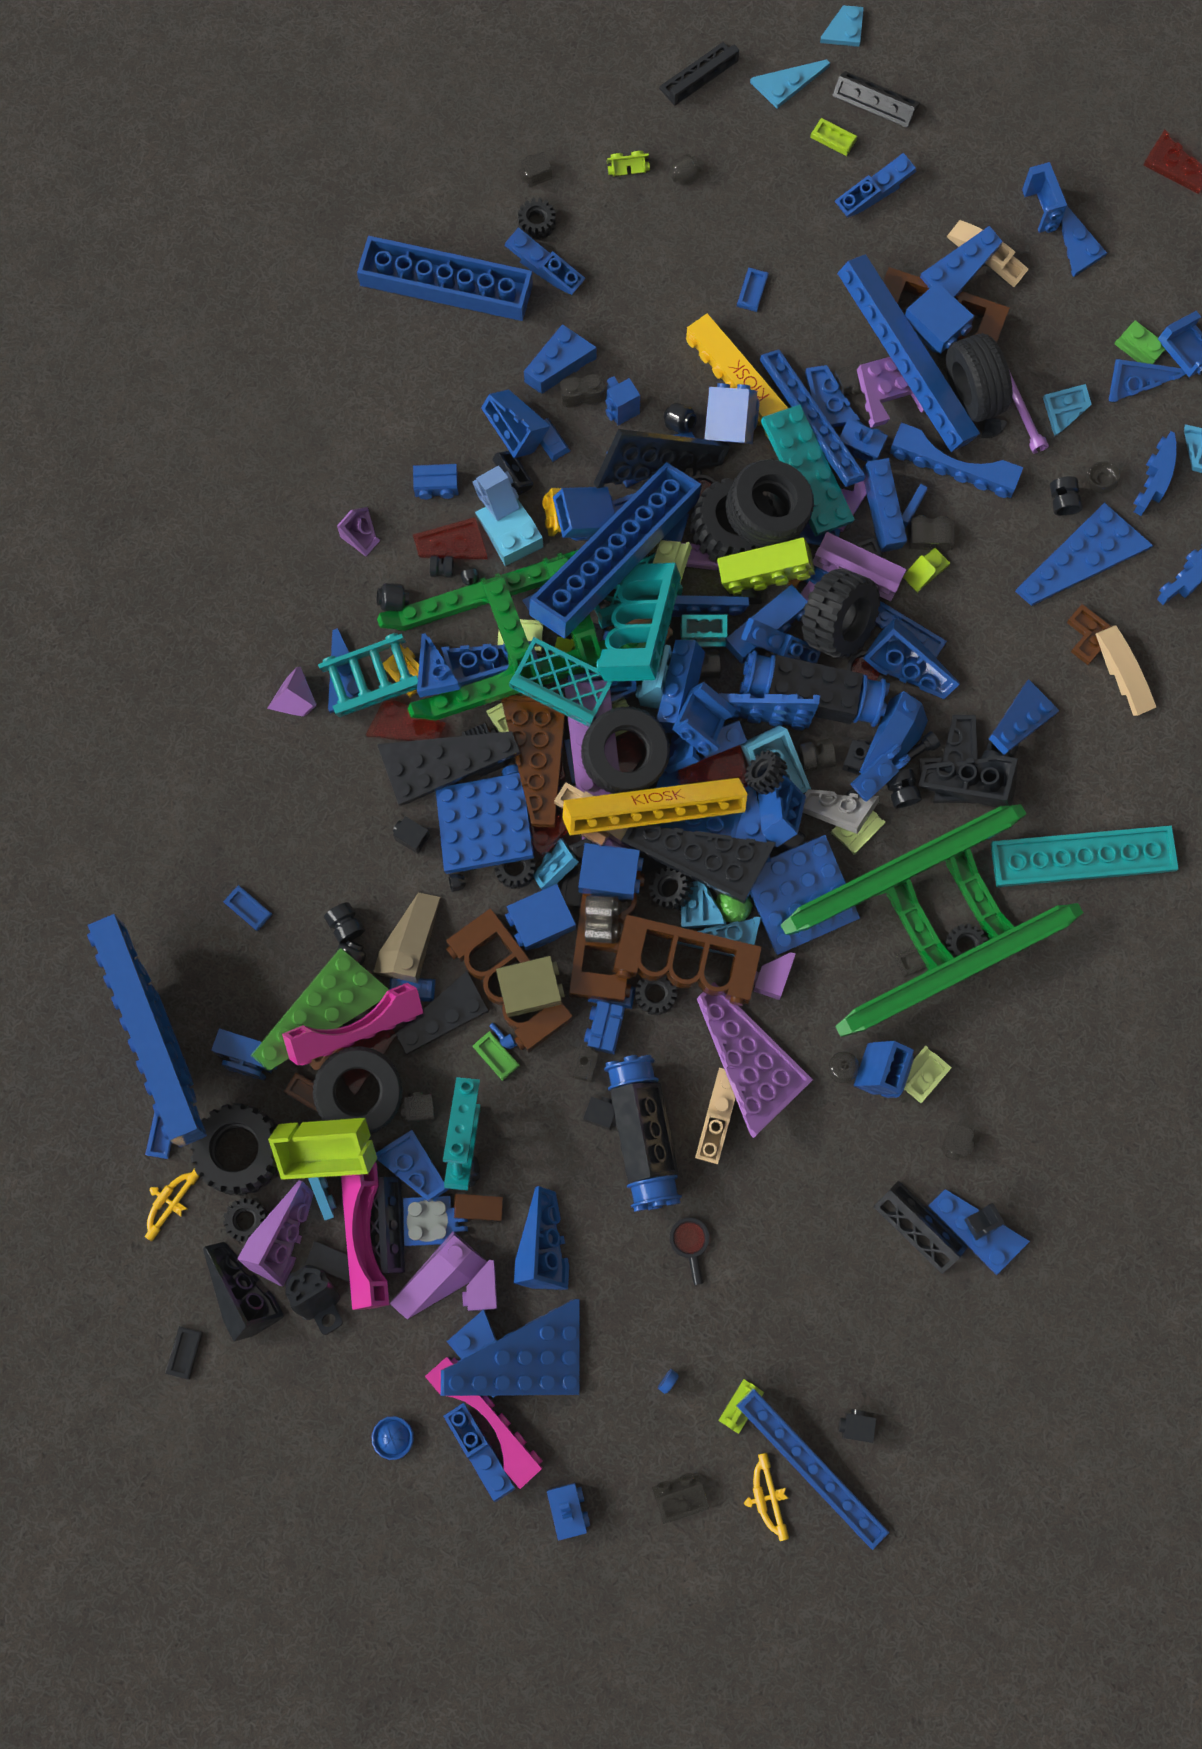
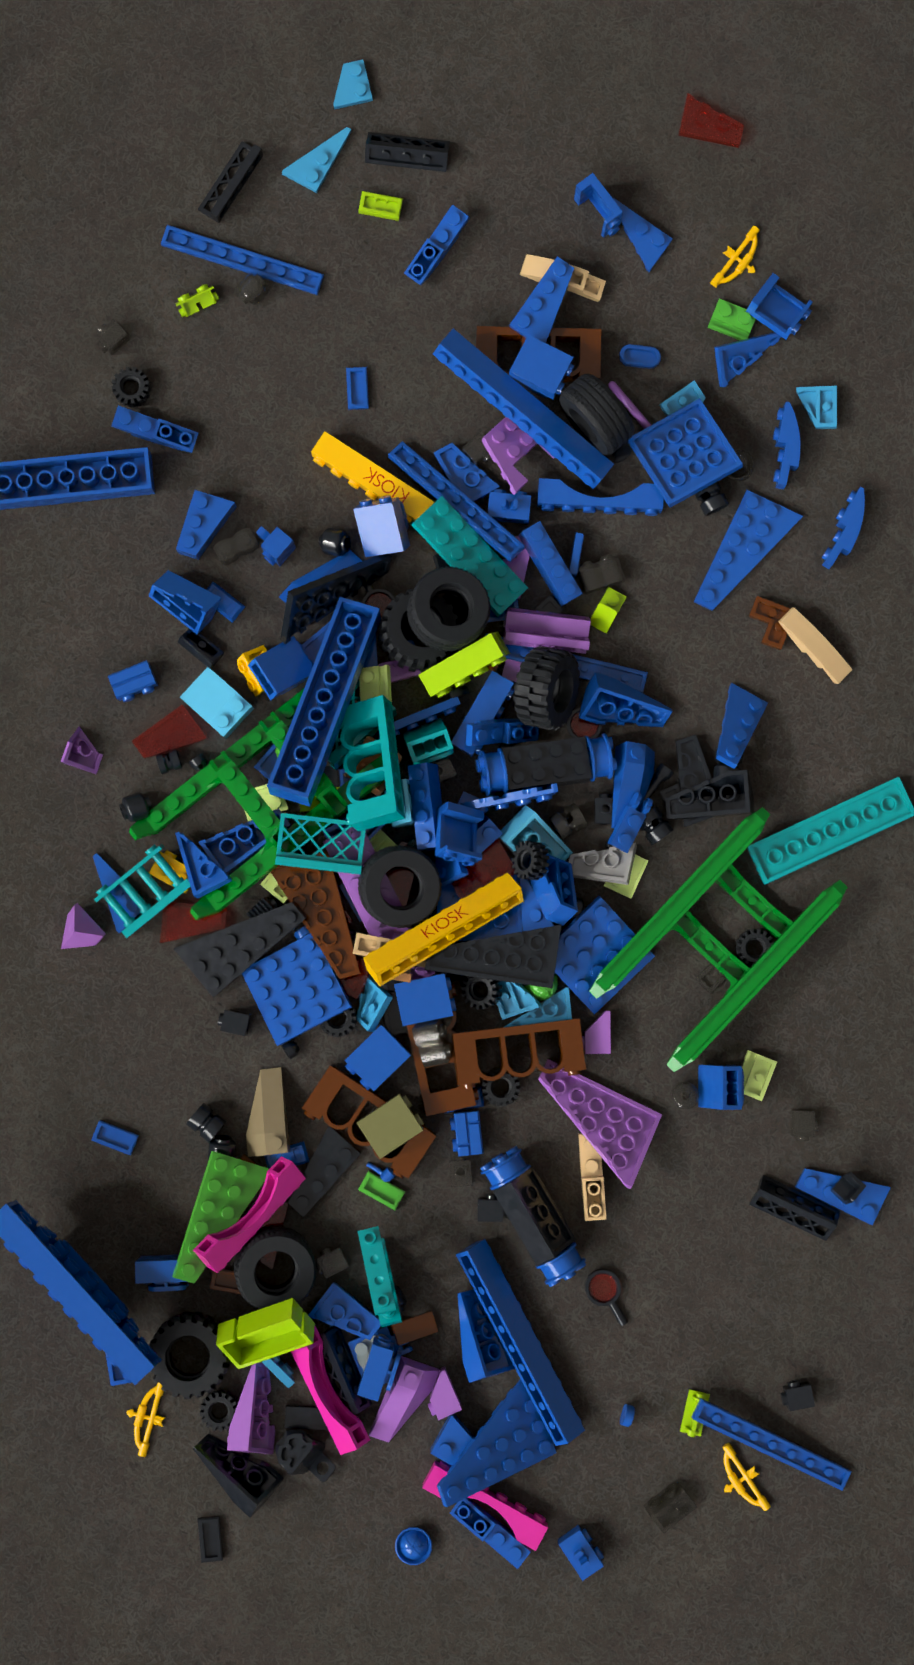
camera: 25 degrees left, 10 degrees up
(426, 1229) = (379, 1368): none -> blue brick
(496, 492) = (194, 676): medium blue brick -> none
(583, 1262) = (520, 1342): none -> blue brick
(685, 143) = (242, 259): none -> blue tile
(1038, 348) = (640, 356): none -> blue tile
(1054, 444) = (685, 453): none -> blue plate
(1169, 297) = (743, 263): none -> yellow piece

